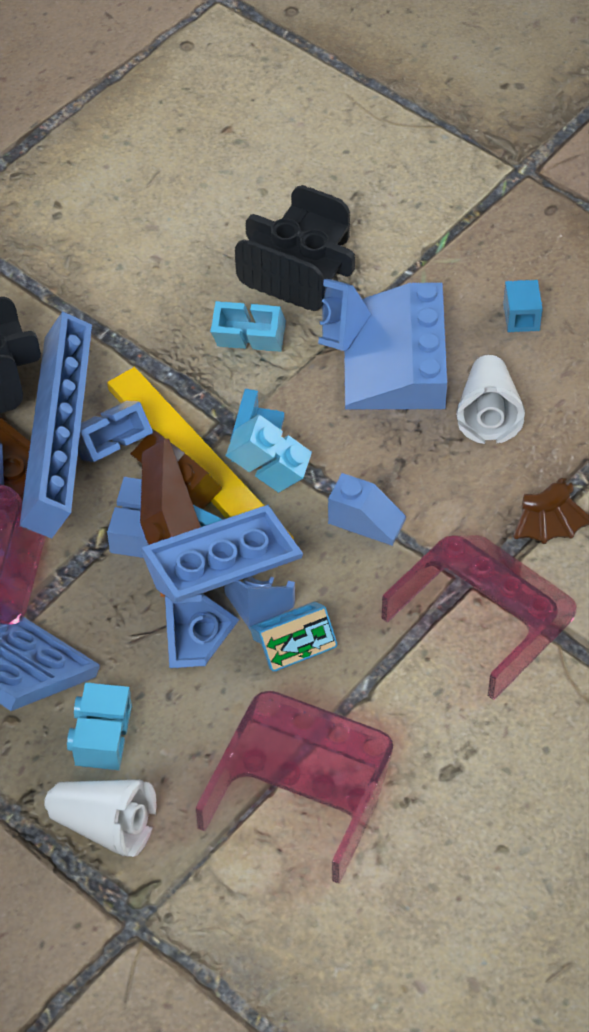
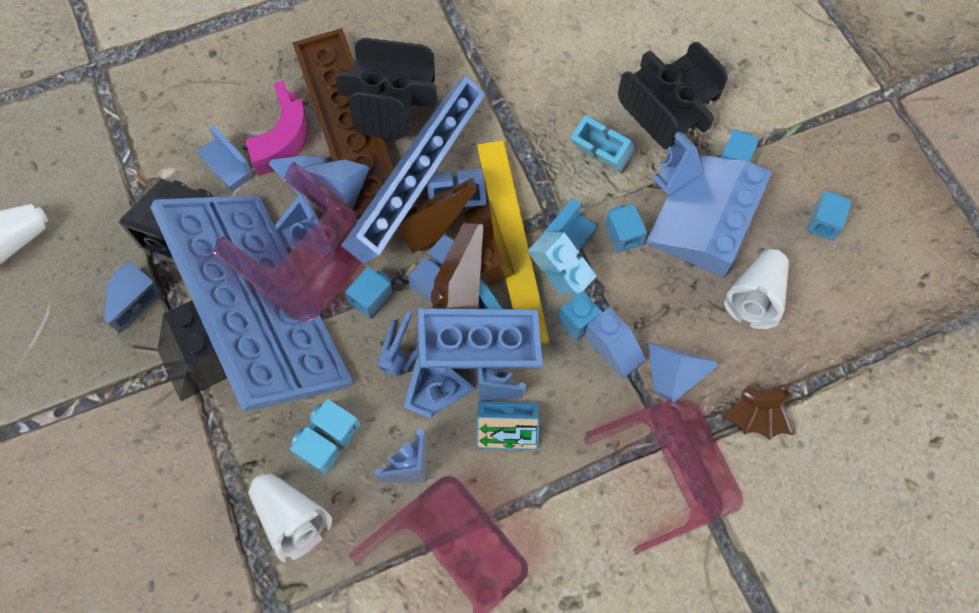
camera: 25 degrees right, 15 degrees up
(69, 570) = (369, 292): none -> dark azure brick
(104, 463) = (430, 219): none -> reddish brown slope
(133, 625) = (391, 358): none -> medium blue plant
(209, 712) = (407, 463): none -> medium blue slope
(310, 499) = (578, 314): none -> dark azure brick
(316, 399) = (625, 228): none -> dark azure brick
(395, 272) = (740, 146): none -> dark azure brick
(442, 509) = (676, 370): none -> medium blue slope

